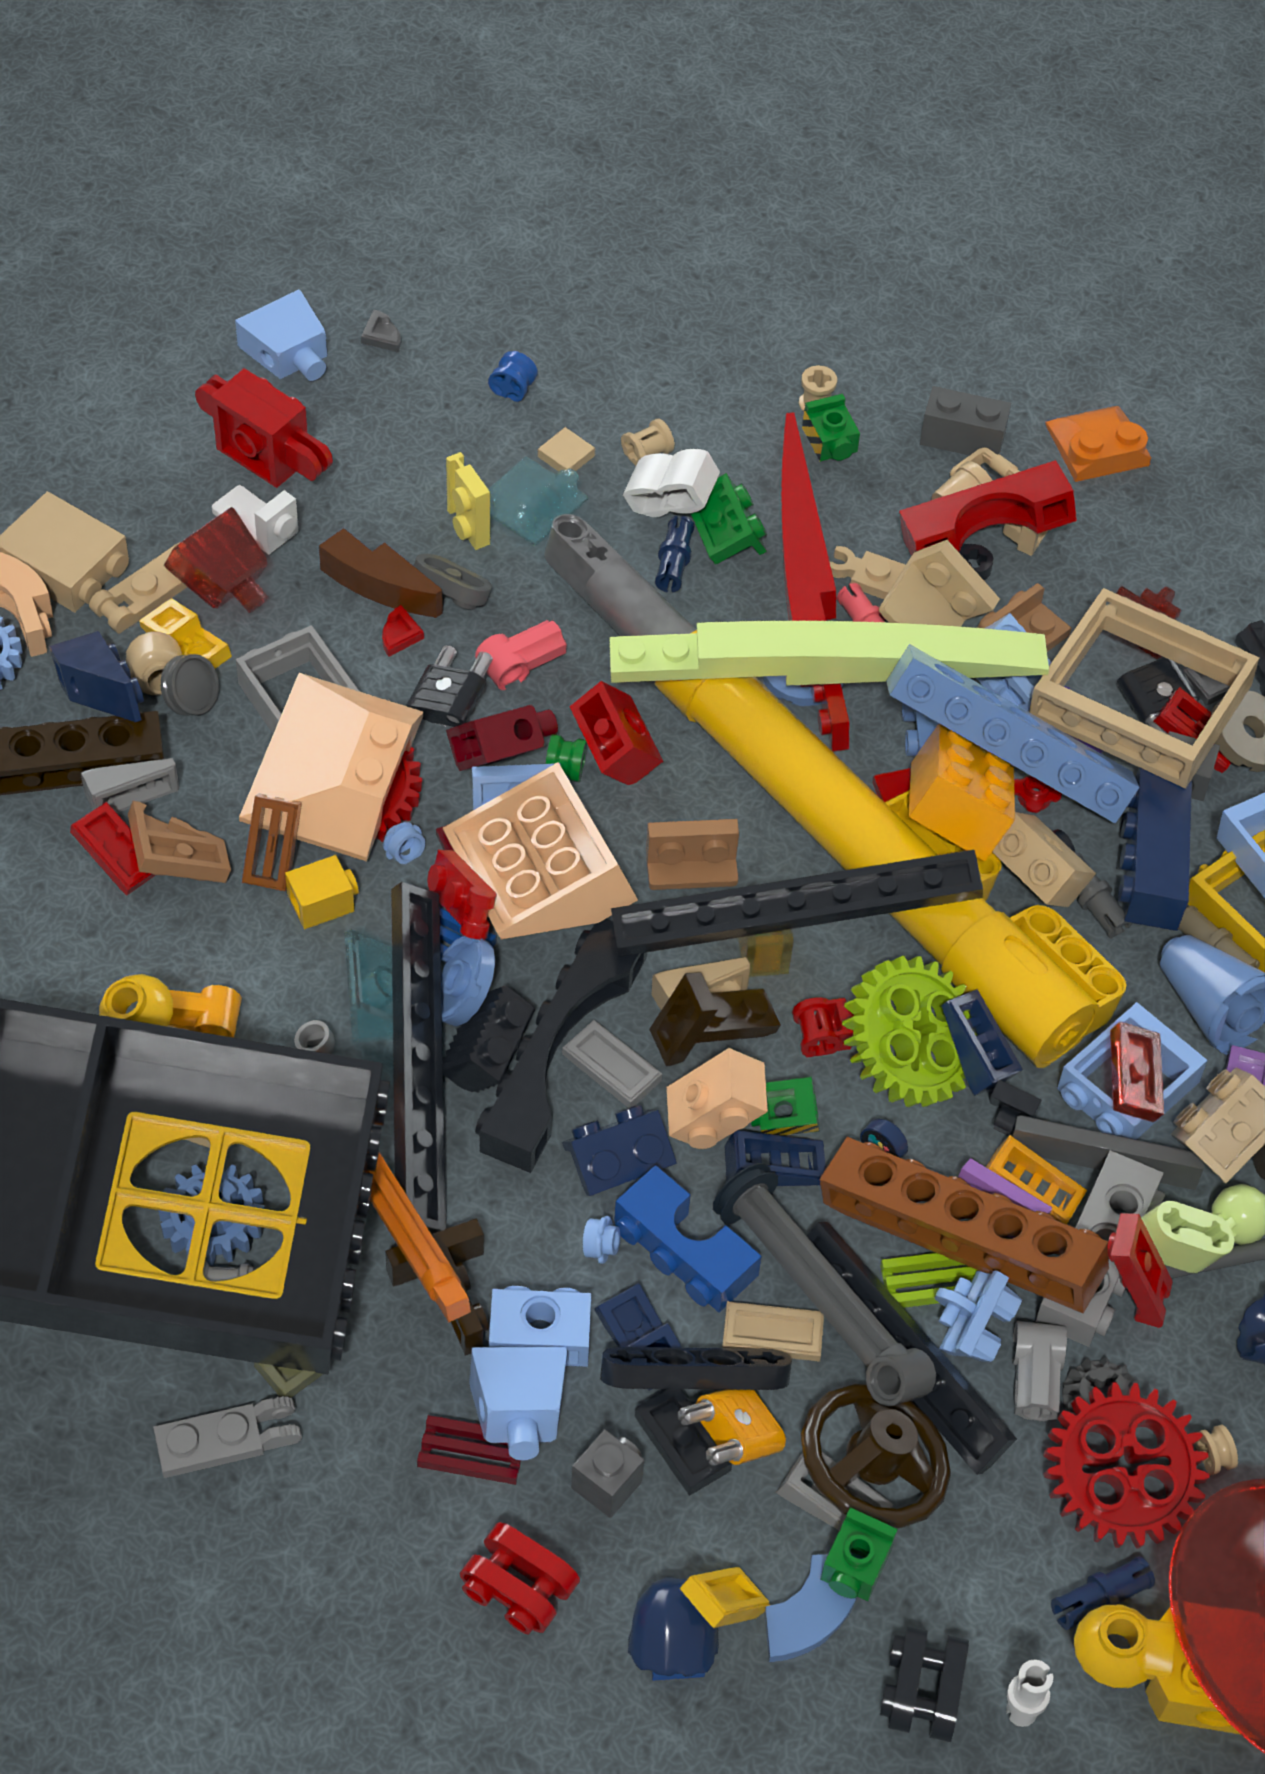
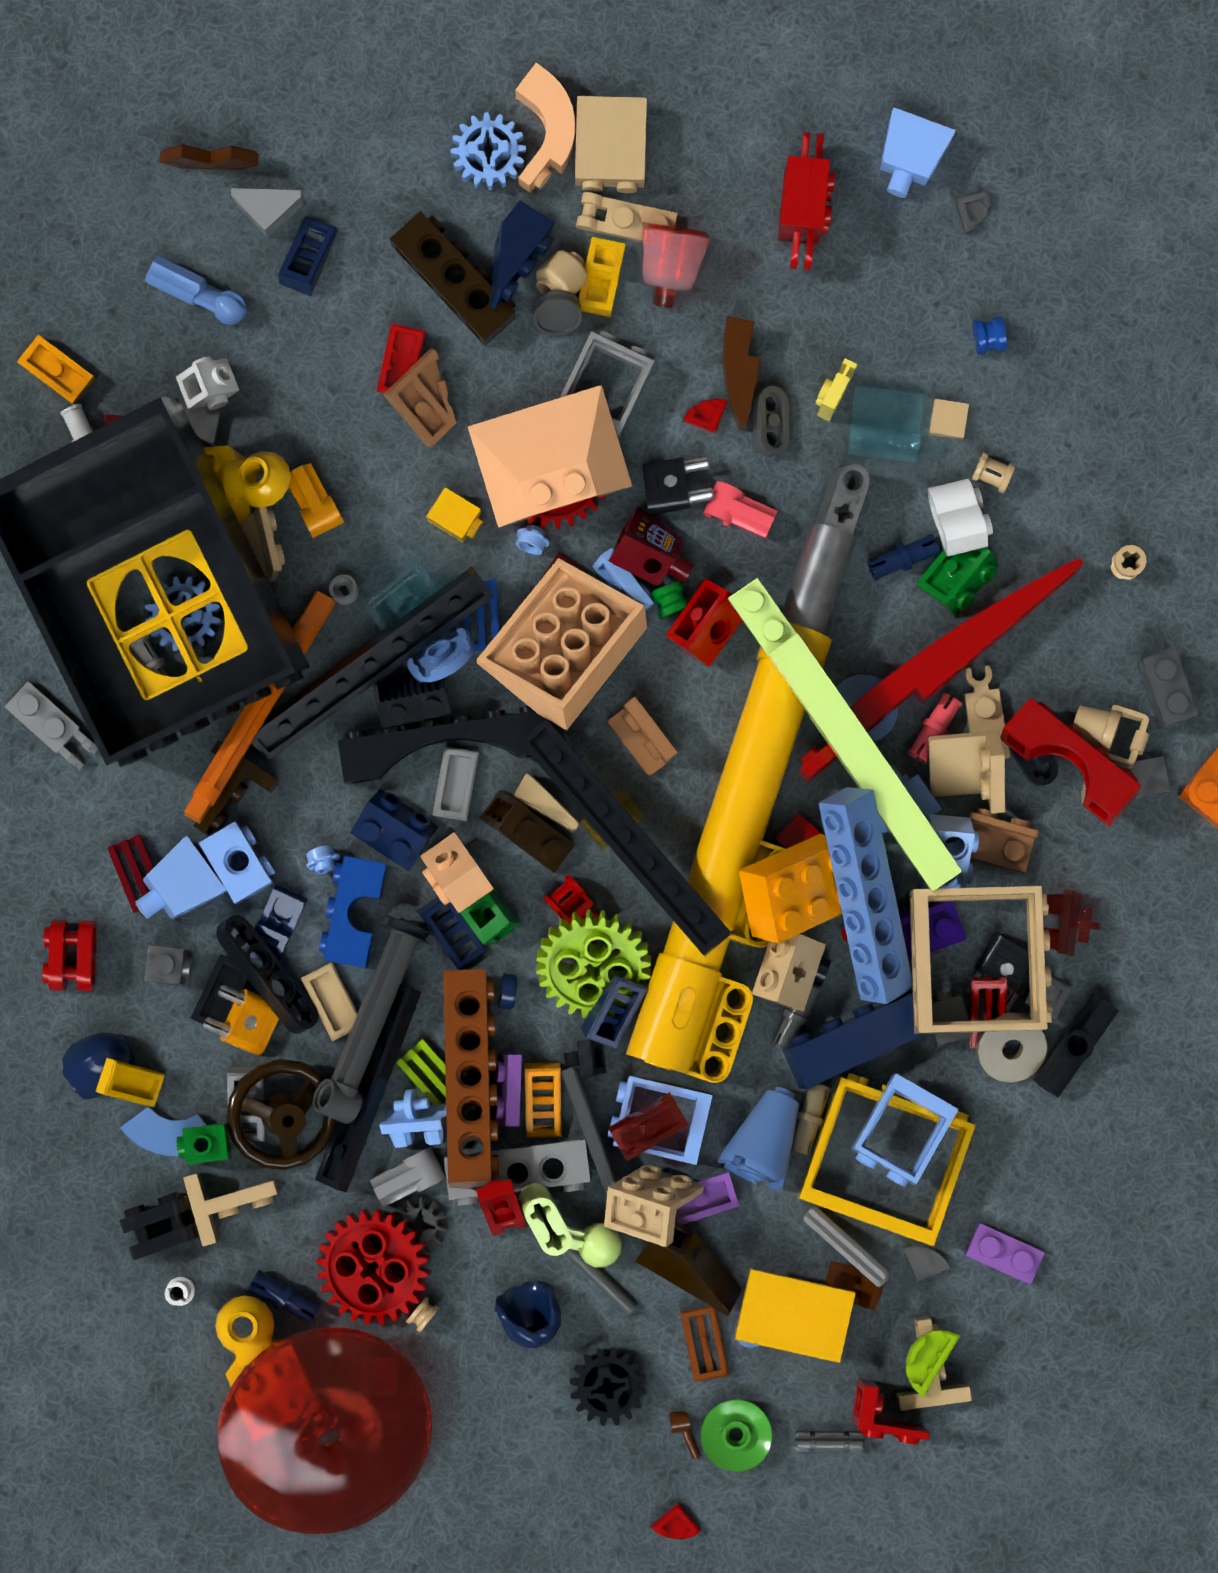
camera: 55 degrees right, 30 degrees up
(129, 783) = (446, 328): light grey slope -> none
(268, 523) = (734, 248): white bracket -> none
(277, 805) = (481, 452): dark orange tile -> none
(462, 893) = (501, 612): red plate -> none
(830, 428) = (1100, 580): green brick -> none
(942, 1610) = (223, 1205): none -> tan bracket

